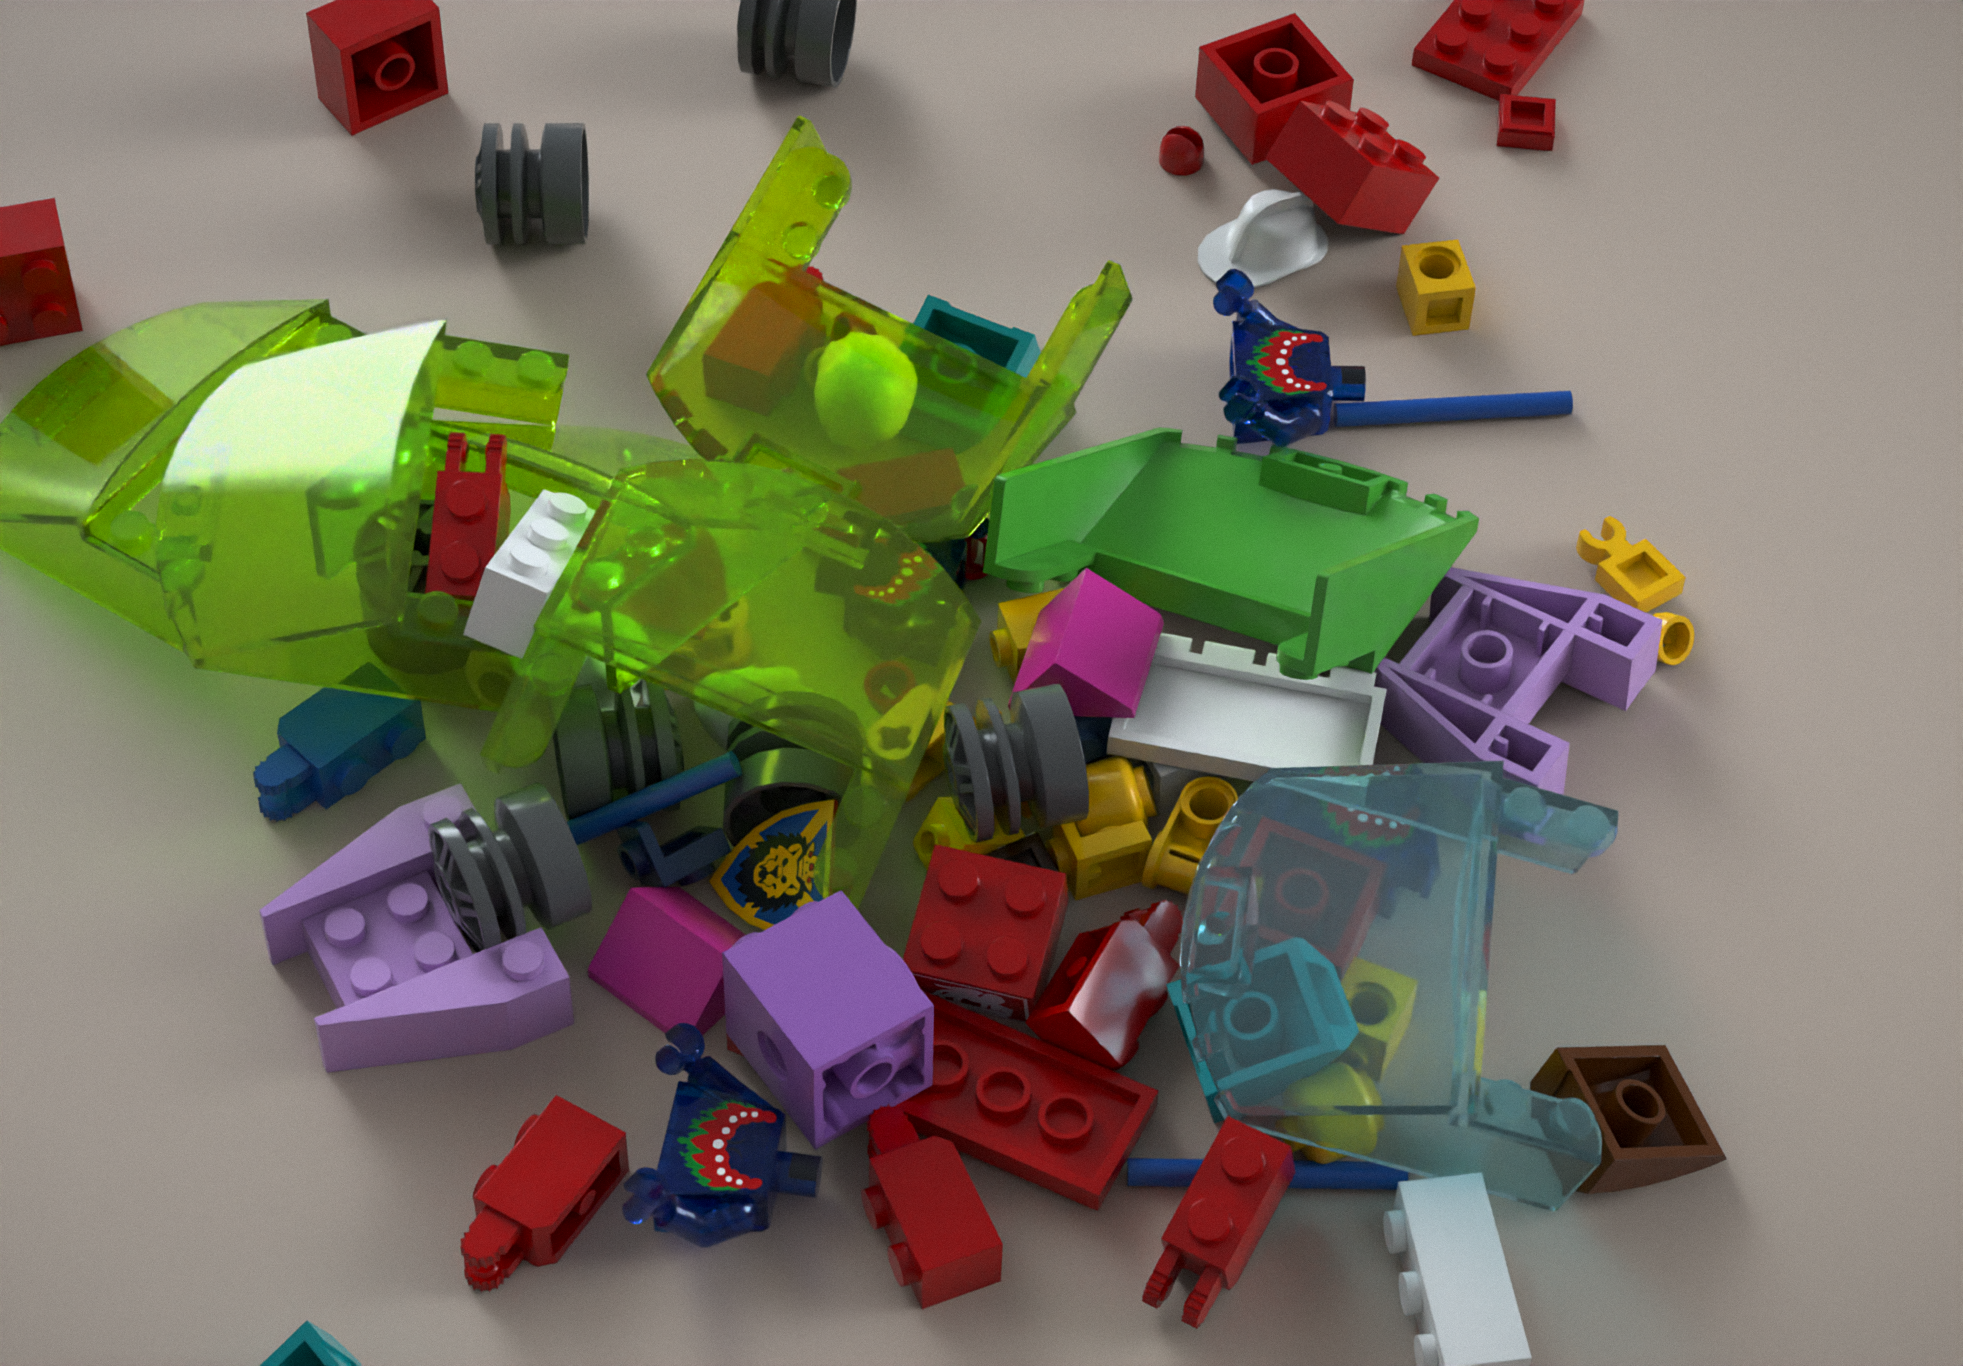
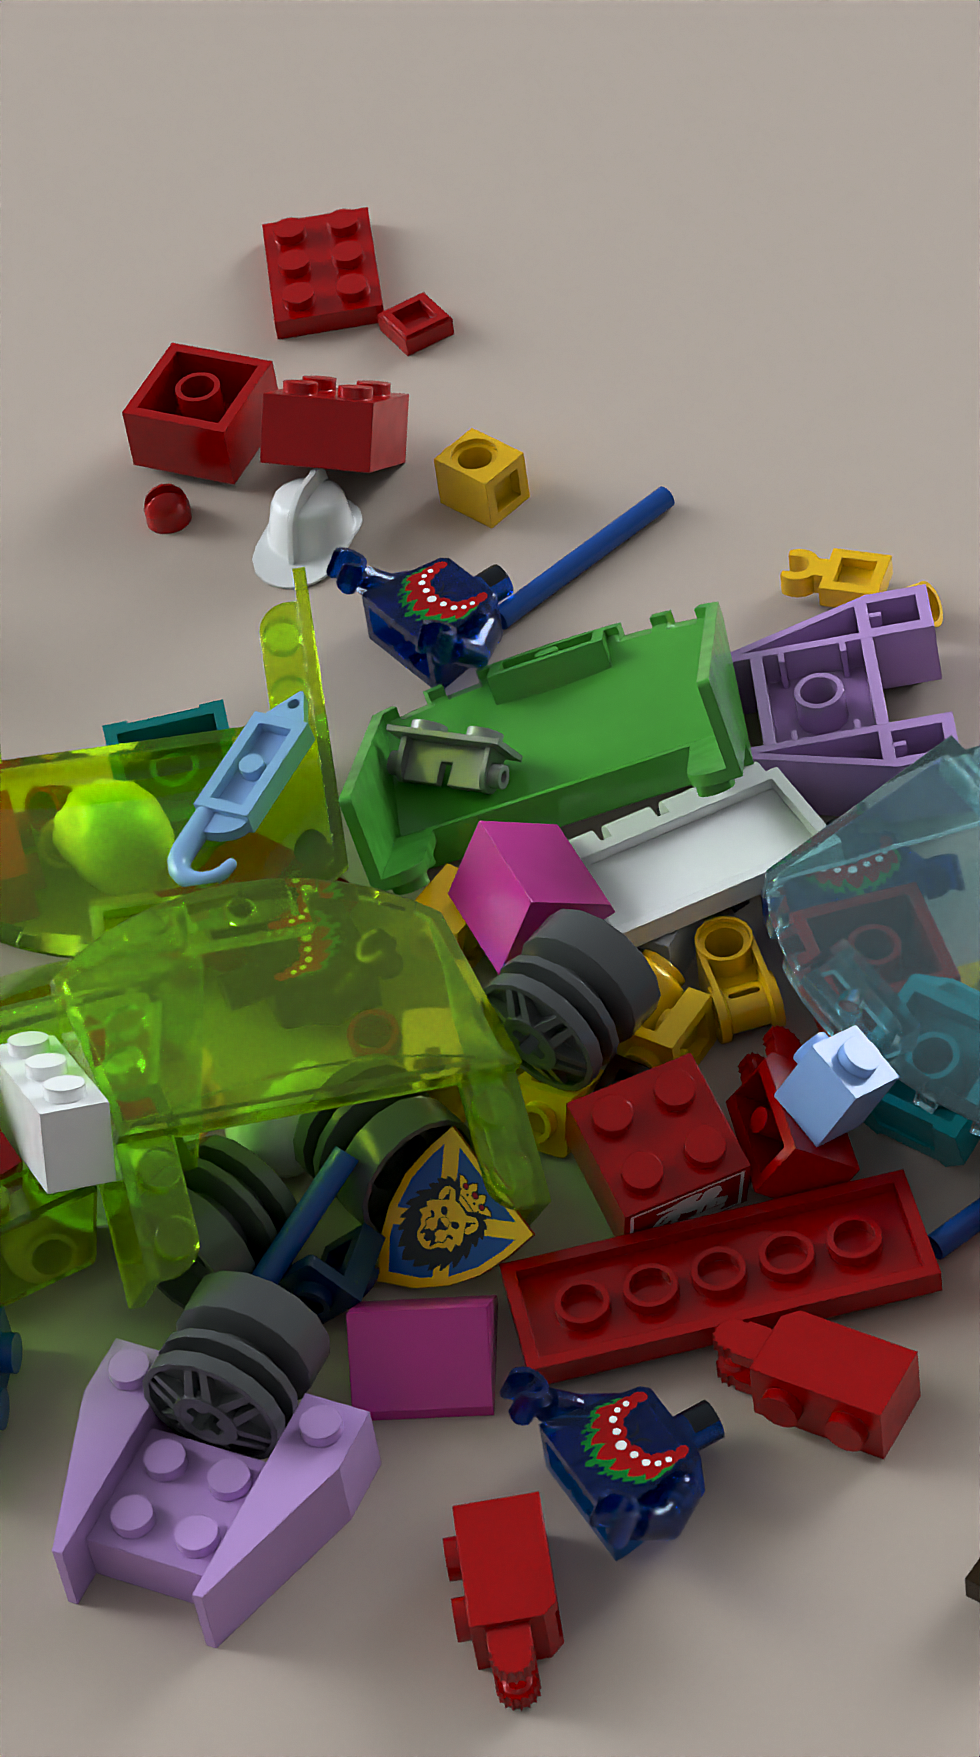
camera: 30 degrees left, 5 degrees down
(828, 1017) = (619, 1284): medium lavender brick -> none
(942, 417) = (243, 787): none -> light blue plate
(1143, 981) = (835, 1084): none -> light blue brick
(1184, 517) = (474, 756): none -> light grey hinge

